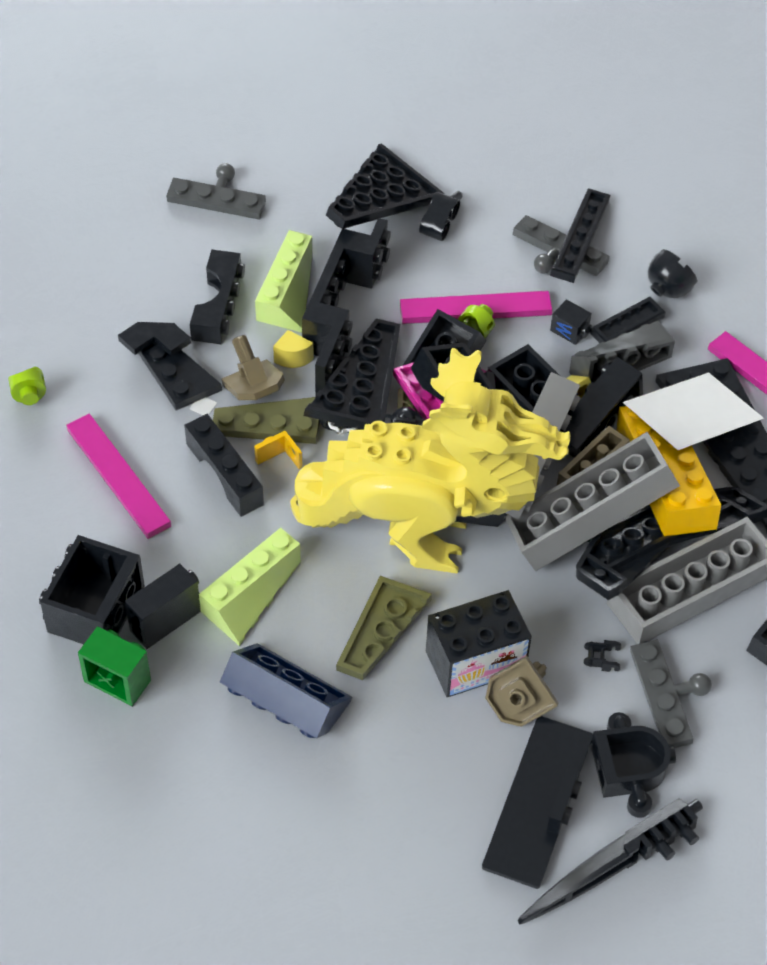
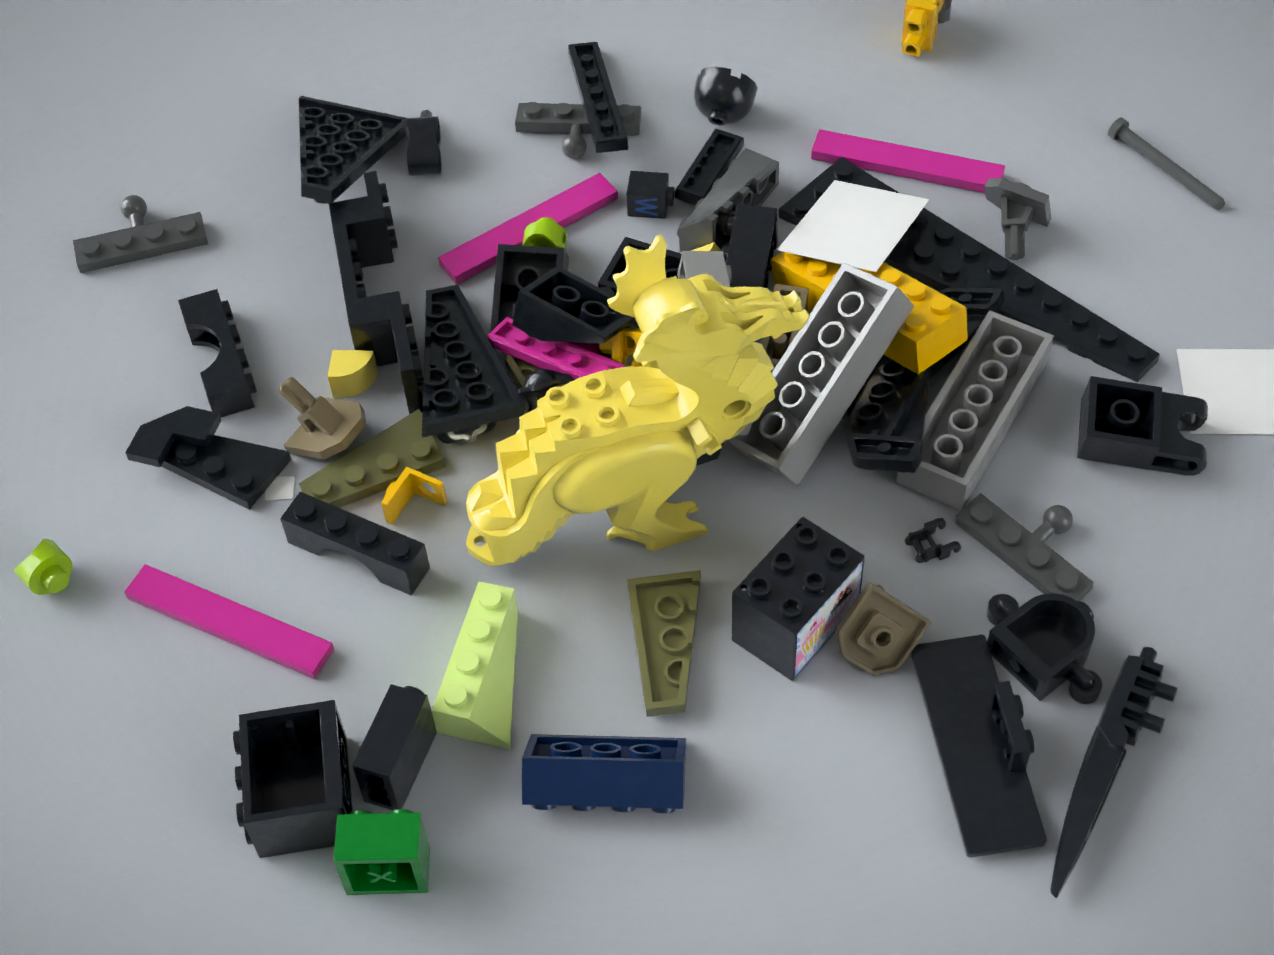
camera: 25 degrees left, 0 degrees up
(286, 287) = (296, 309): yellowish green wedge -> none

